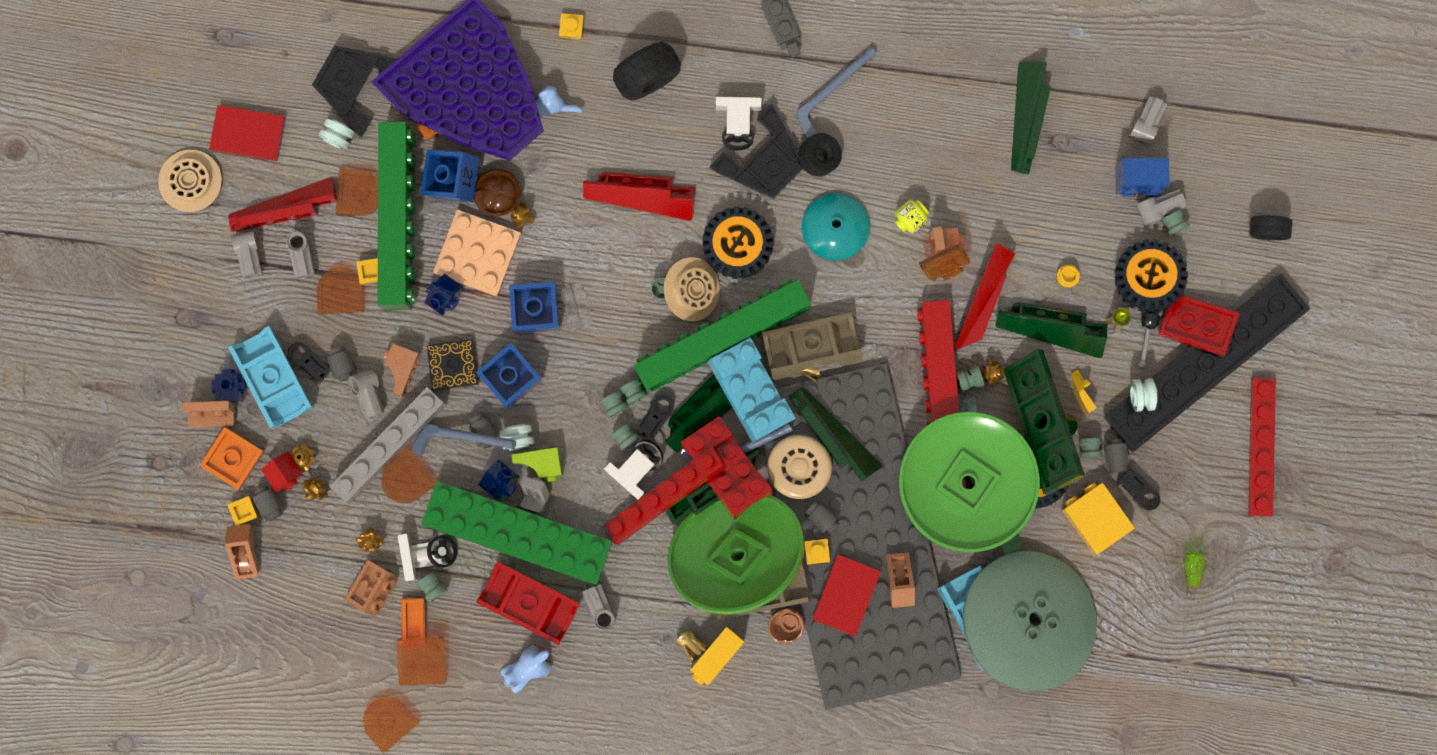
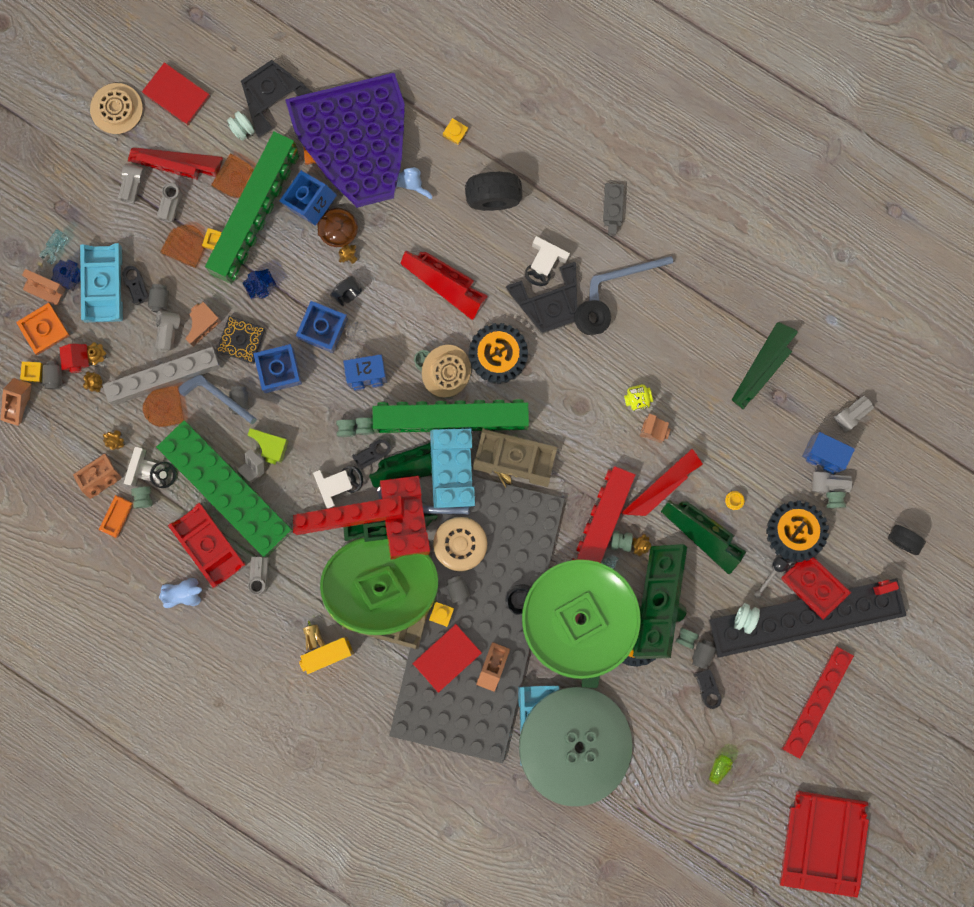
camera: 20 degrees right, 0 degrees up
(199, 358) = (56, 242): none -> clear light blue plate
(387, 722) = (59, 582): clear orange tile -> none
(421, 660) = (106, 548): clear orange plate -> none
(477, 253) = (301, 265): light nougat plate -> none
(499, 481) = (231, 443): clear blue brick -> none
(519, 434) = (263, 417): light aqua wheel -> none
(540, 255) = (346, 290): none -> black hair
(606, 333) = (365, 372): none -> blue brick
(625, 436) = (341, 456): sand green wheel -> none
(786, 625) = (390, 658): nougat hair -> none
(832, 242) = (573, 390): teal dish -> none
(834, 436) = (498, 534): dark green wedge -> none
(888, 494) = (516, 597): none -> black hair
(946, 263) = (646, 445): clear orange tile -> none
(1078, 385) = (700, 598): yellow slope -> none
(1097, 518) = (665, 694): yellow brick -> none
(1120, 317) = (759, 551): clear neon green piece -> none
(1272, 288) = (885, 586): none -> red plate
(1344, 593) = (825, 844): none -> red piece

